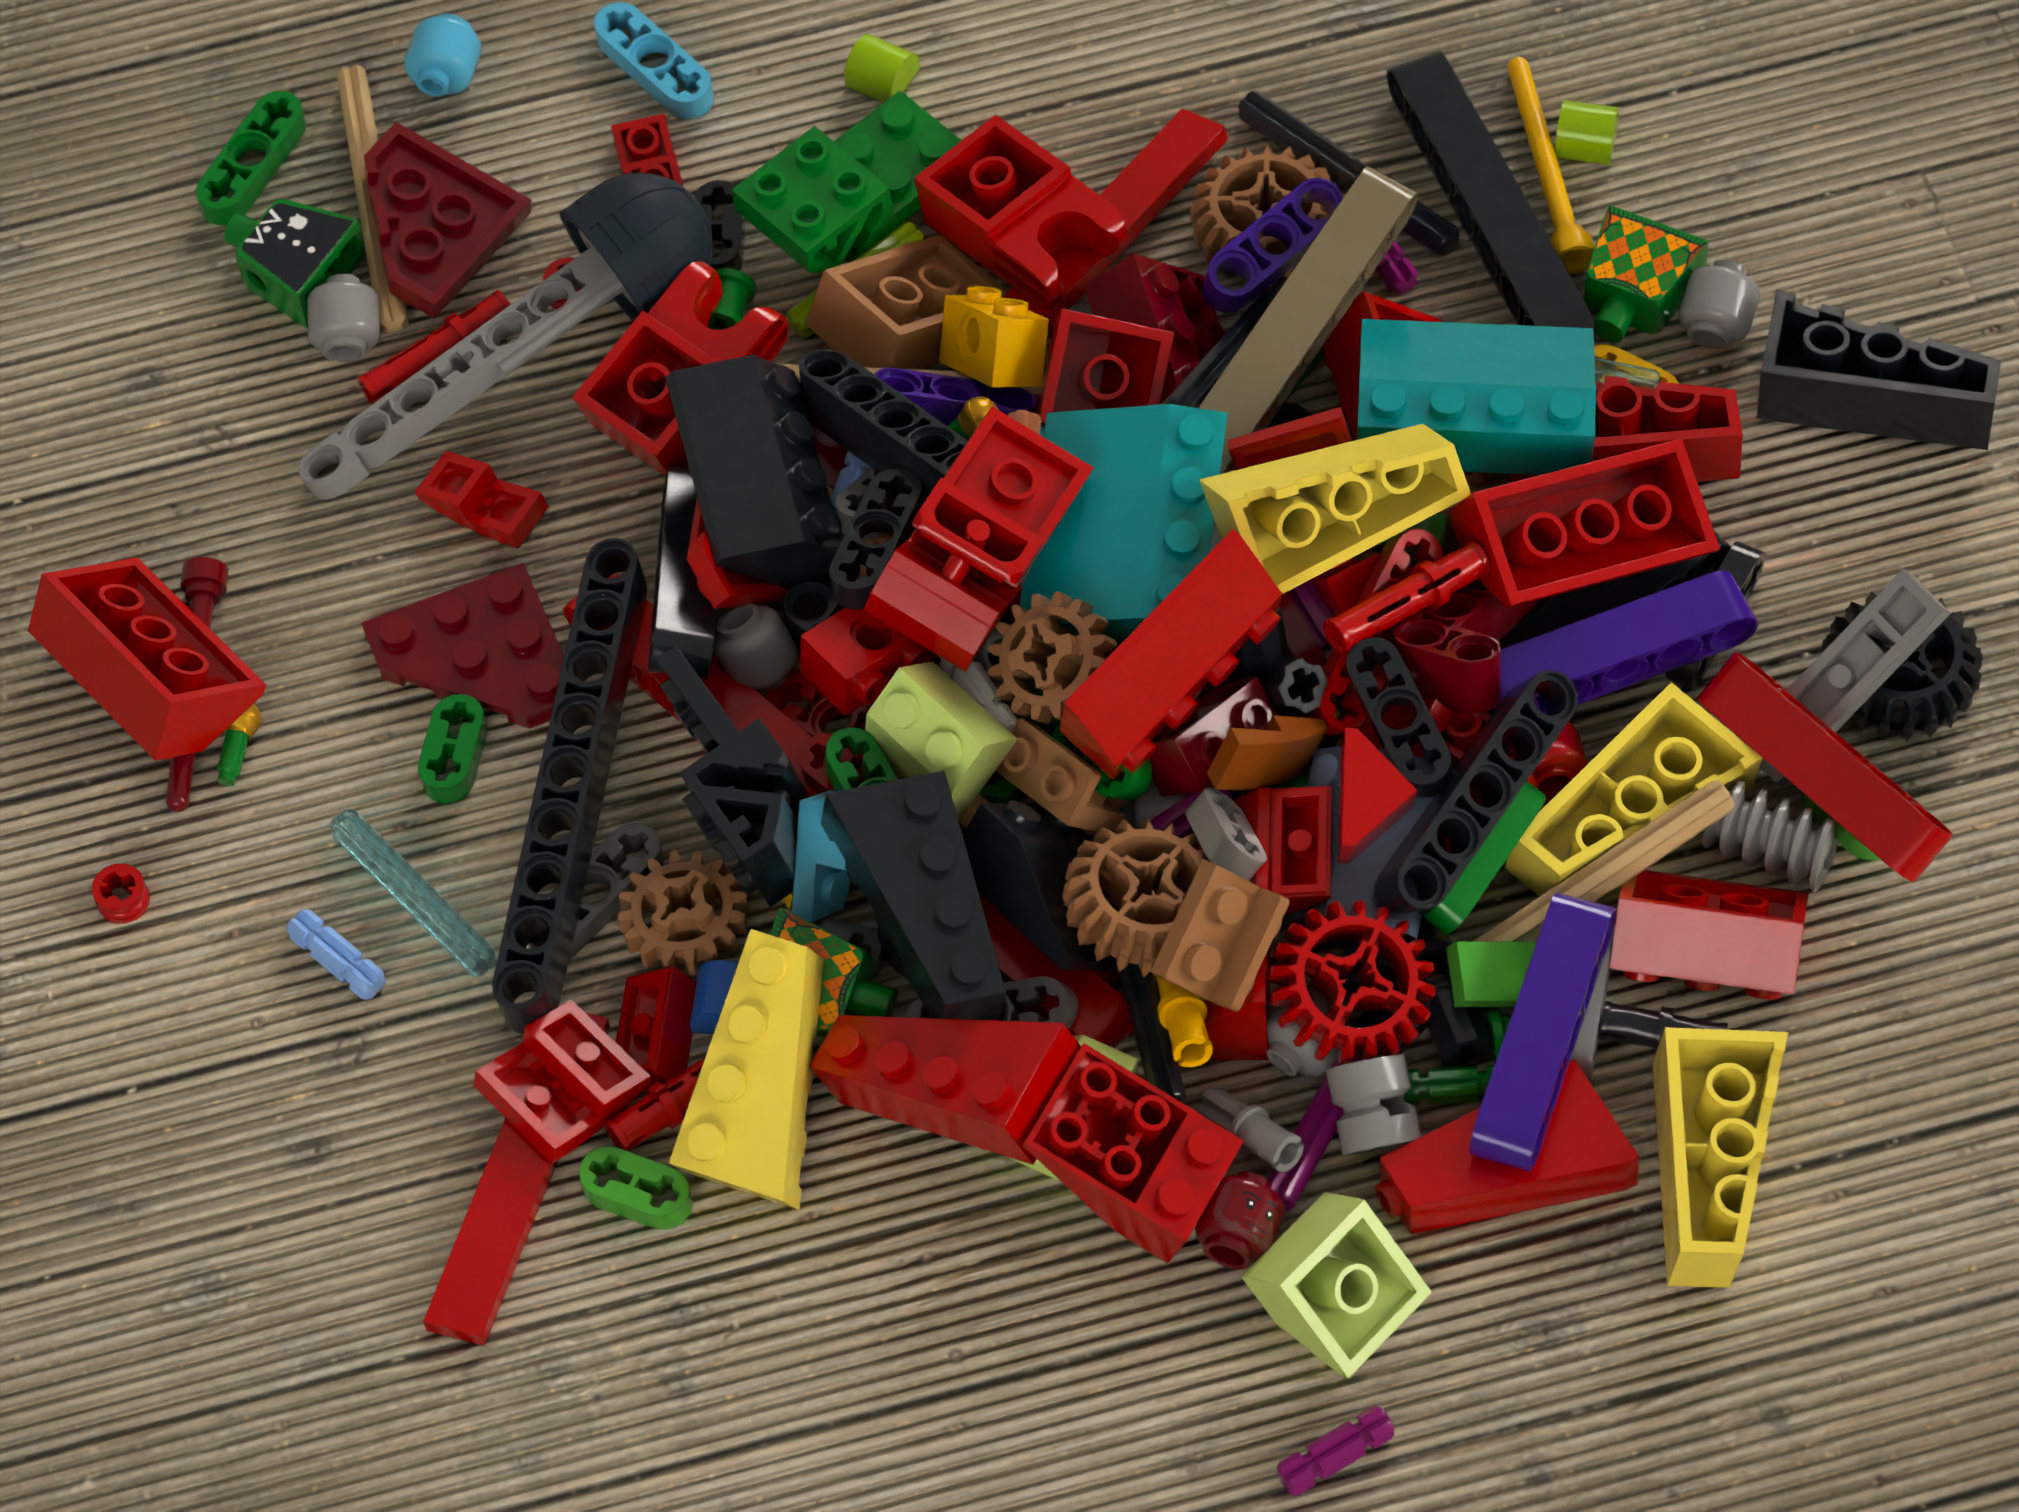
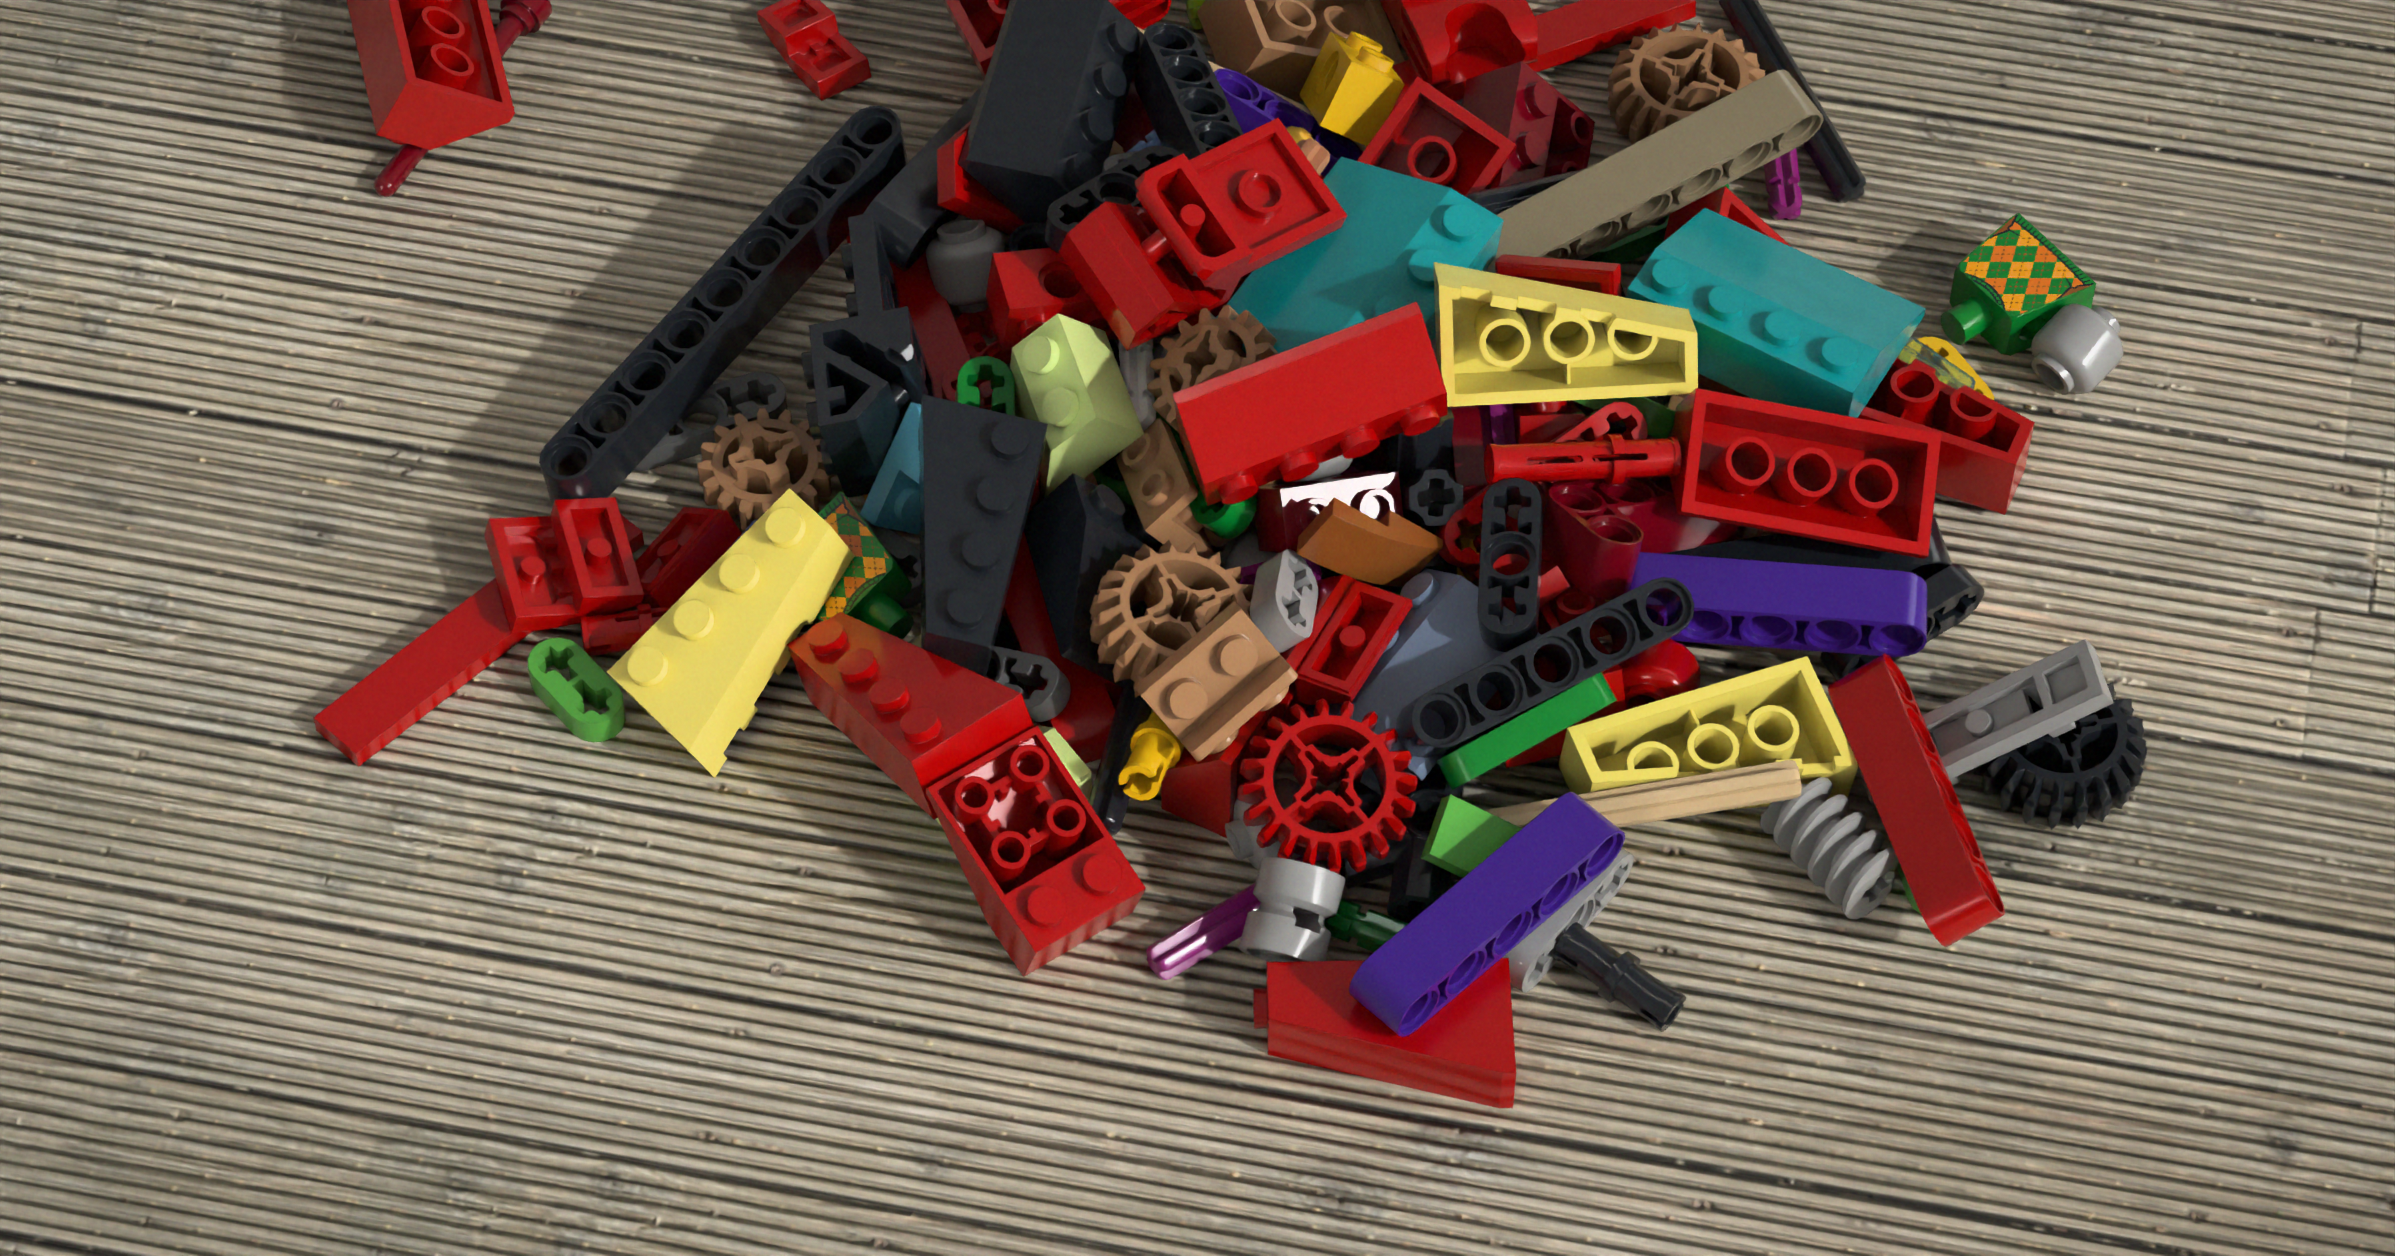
camera: 20 degrees right, 5 degrees down
(131, 881) = (280, 226): red bush -> none
(235, 745) = (472, 149): green piece -> none
(336, 954) = (439, 373): light blue axle -> none
(413, 892) = (537, 342): clear light blue axle -> none
(441, 746) = (659, 248): green beam -> none
(475, 642) = (722, 160): dark red plate -> none
(1240, 1220) = (1105, 962): dark red head -> none
(1252, 262) = (1631, 105): dark purple beam -> none
(1253, 1126) = (1167, 887): light grey axle -> none
(1335, 1450) = (1071, 1212): magenta axle -> none
(1337, 1282) = (1164, 1062): yellowish green slope -> none
(1370, 795) = (1435, 625): red slope -> none
(1485, 195) = (1910, 162): black beam -> none
(1569, 239) = (1969, 229): yellow piece -> none
(1586, 132) = (2044, 146): lime brick -> none
(1709, 933) = (1717, 906): slope -> none
(1711, 1136) = (1604, 1091): light yellow wedge -> none
(1873, 379) = (2184, 476): black wedge -> none

